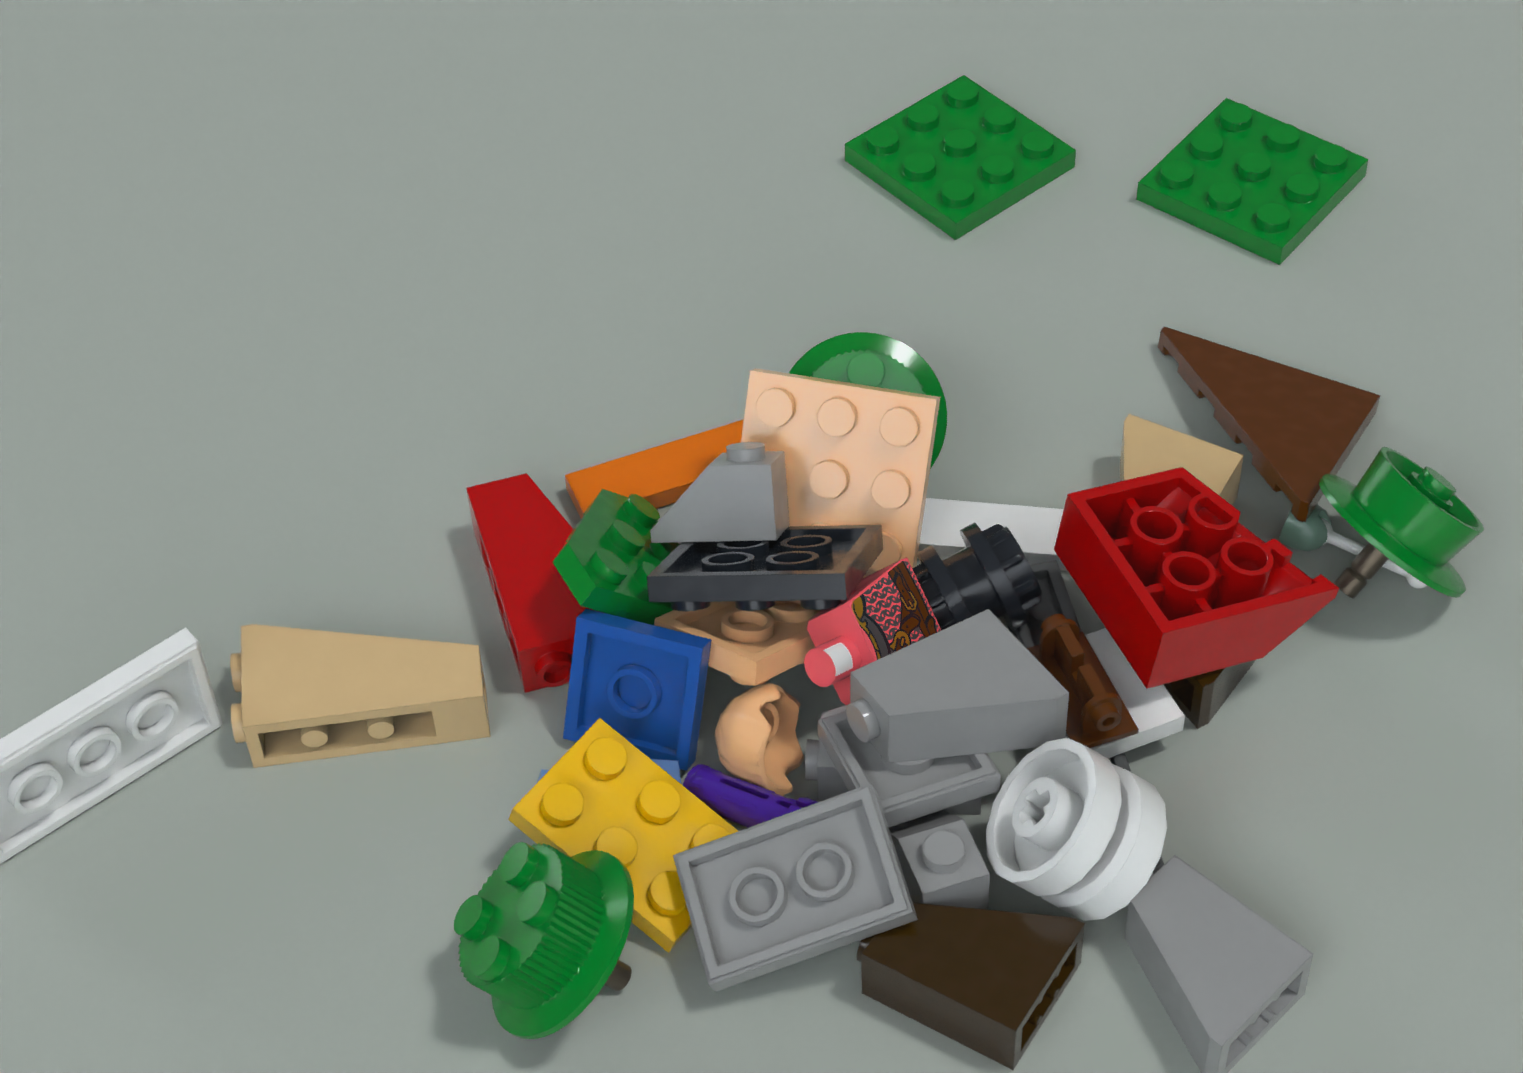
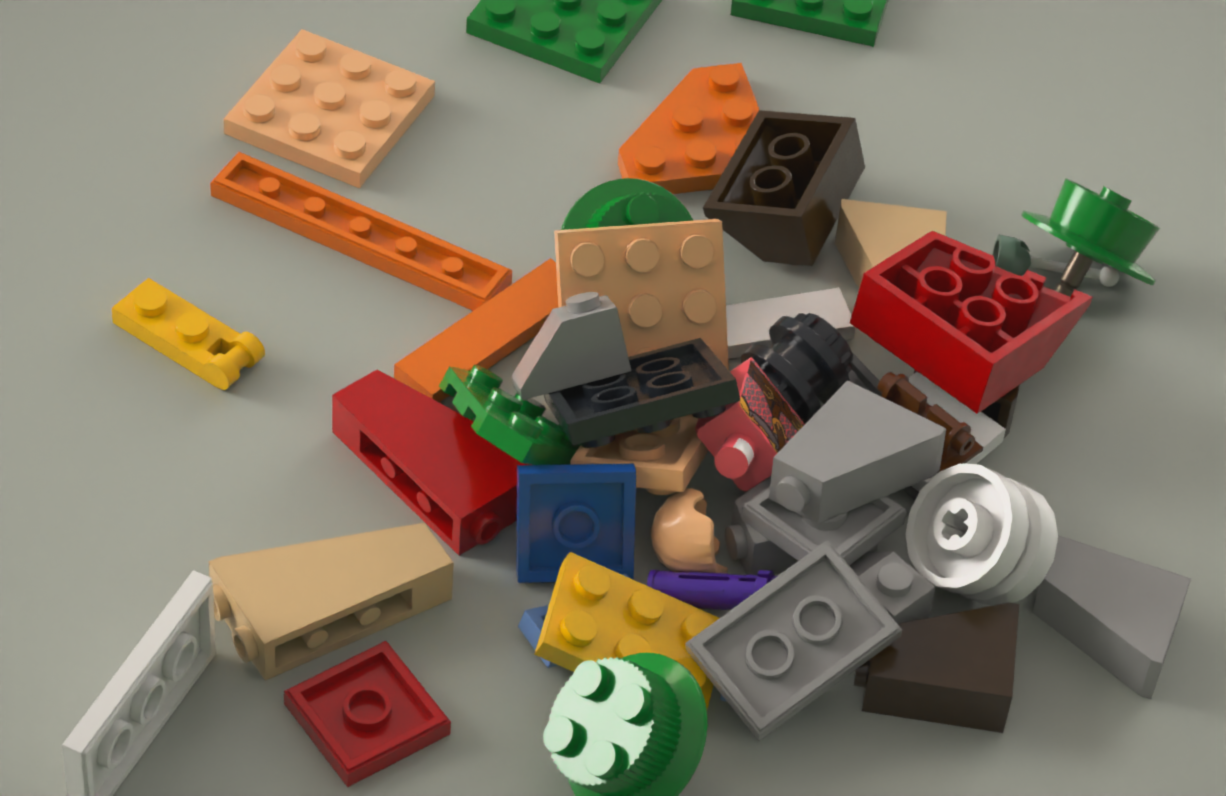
camera: 30 degrees left, 0 degrees up
(327, 833) = (367, 713): none -> red tile
(384, 394) = (187, 334): none -> yellow plate
(617, 335) = (360, 232): none -> orange tile
(659, 205) = (329, 108): none -> light nougat plate
(1027, 319) = (692, 131): none -> orange plate
(1076, 383) = (788, 184): none -> dark brown slope
(1283, 415) = (959, 170): reddish brown tile -> none

